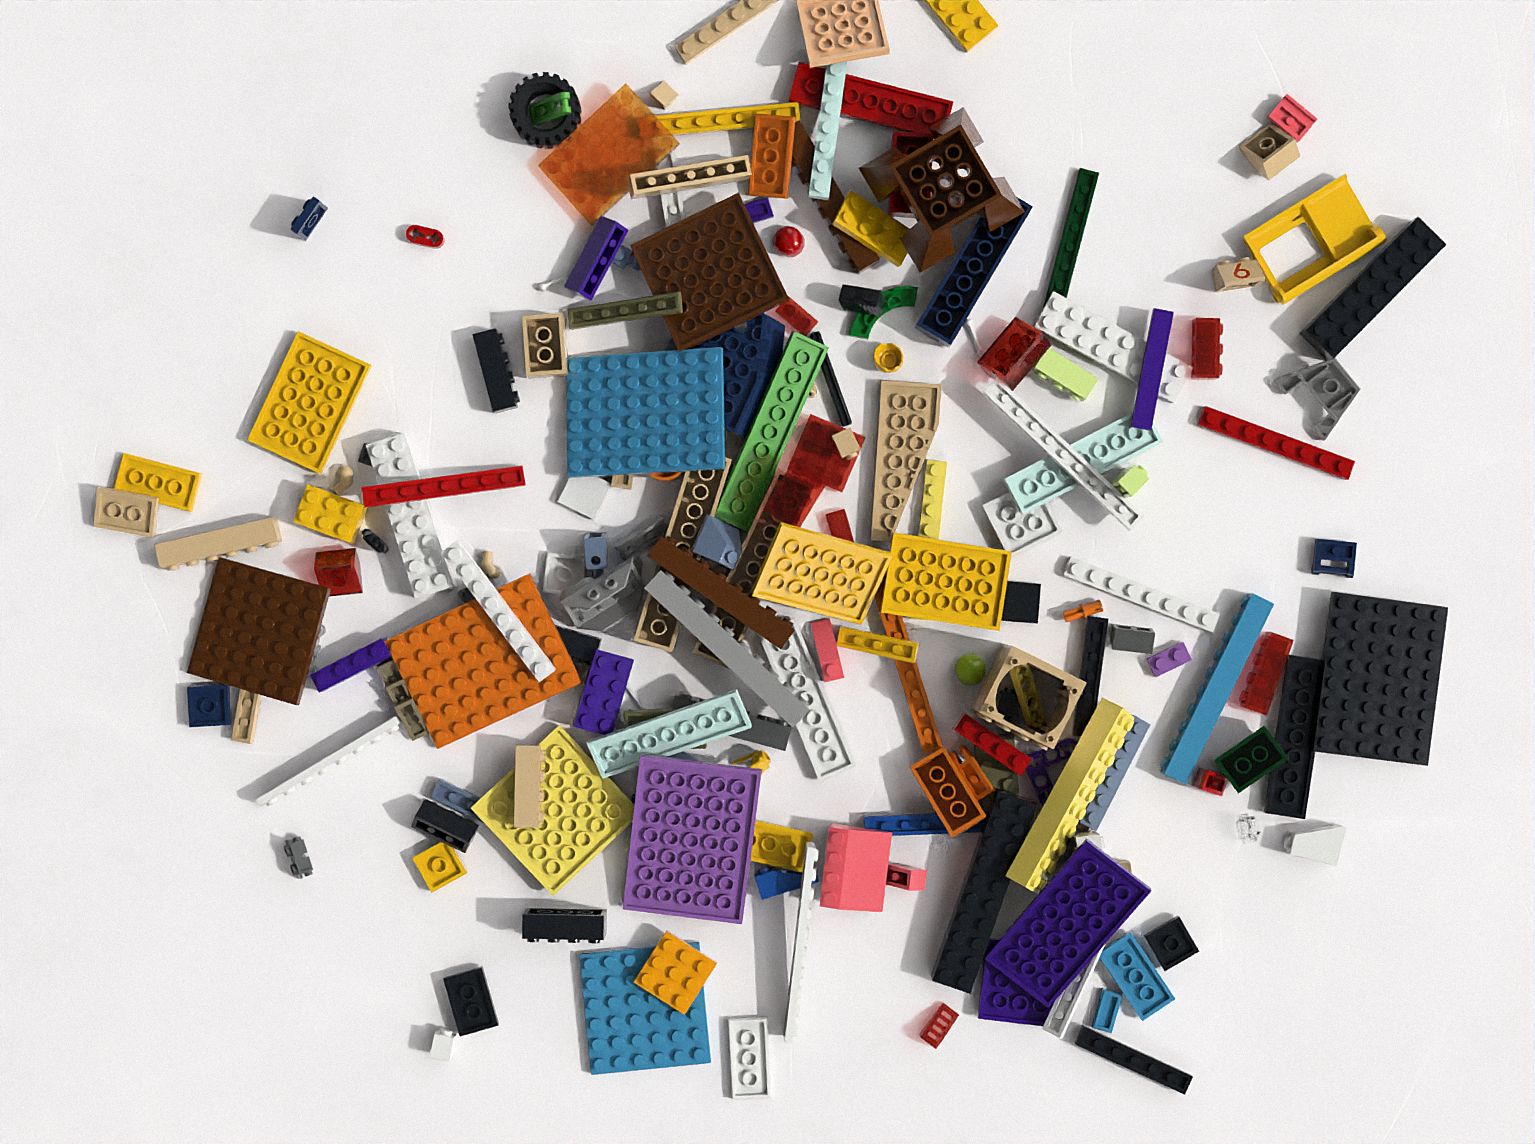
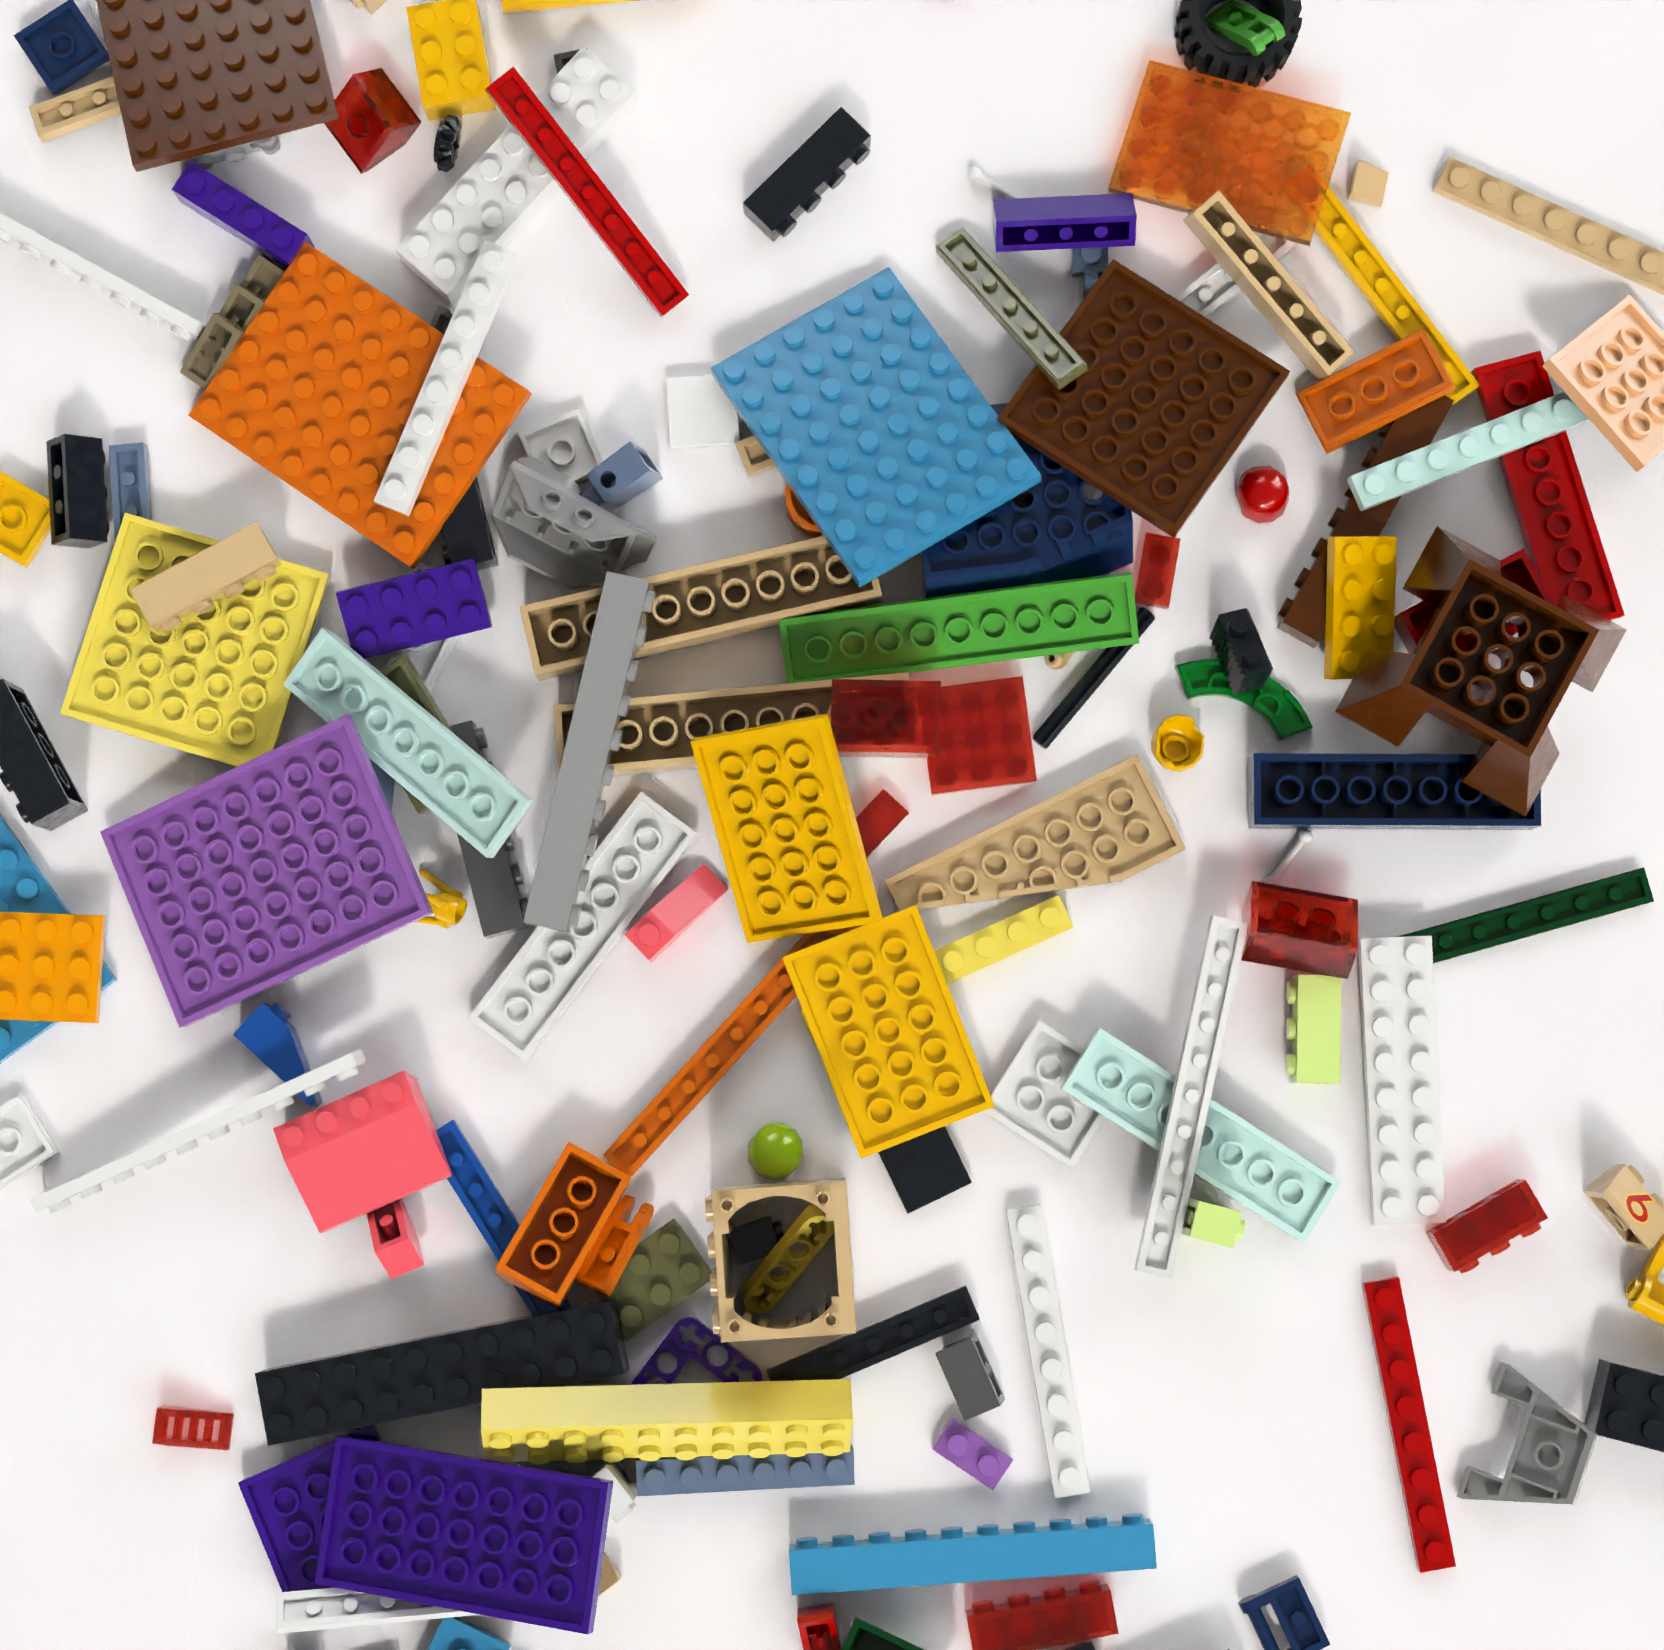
camera: 60 degrees right, 5 degrees down
(346, 479) = (516, 52): tan arm -> none
(487, 567) = (507, 331): tan arm -> none
(545, 345) = (888, 222): tan brick -> none
(641, 538) = (683, 533): light grey plate -> none
(718, 542) = (743, 647): sand blue slope -> none
(720, 592) = (668, 694): reddish brown brick -> none
(759, 210) = (1281, 423): dark purple tile -> none
(779, 845) = (333, 1012): yellow plate -> none
(846, 444) = (1008, 754): tan brick -> none
(877, 644) = (730, 983): yellow plate -> none
(991, 744) = (677, 1249): red brick -> none
(1083, 611) = (968, 1273): orange axle -> none
(1152, 369) = (1404, 1158): dark purple tile -> none

